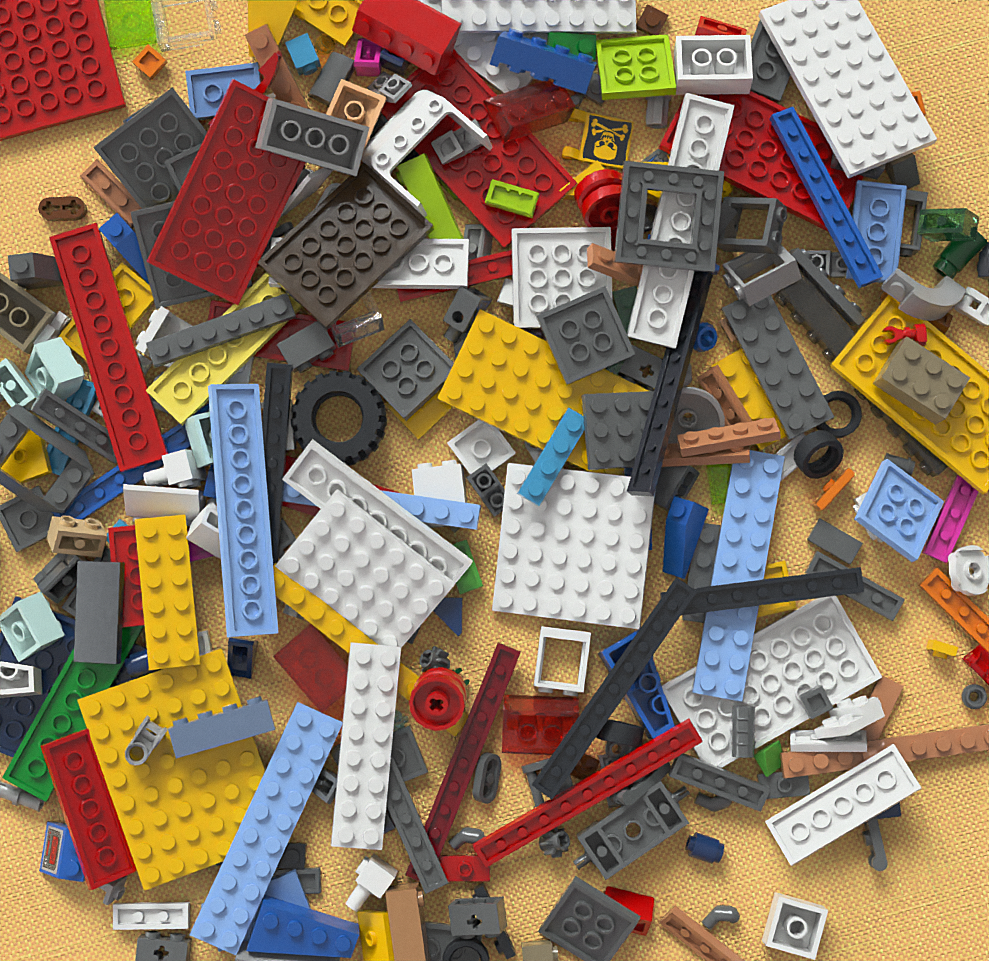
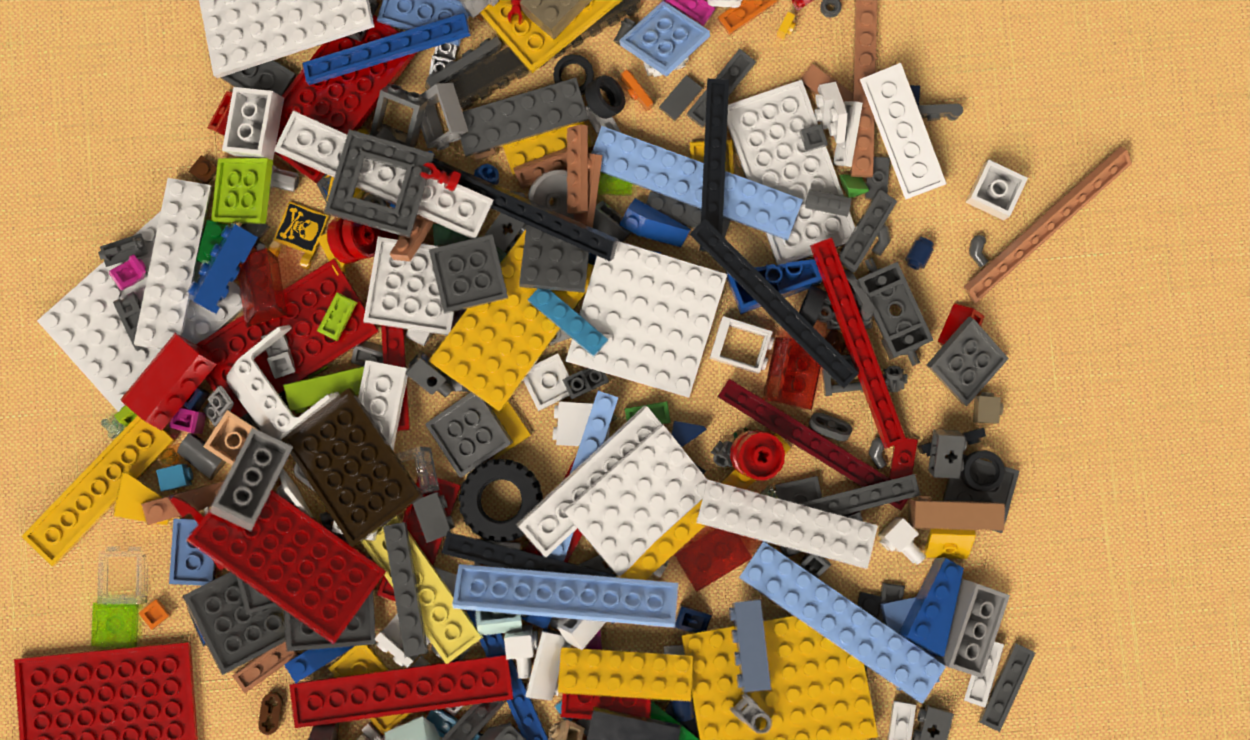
camera: 85 degrees left, 0 degrees up
(687, 295) = (450, 180): none -> red piece

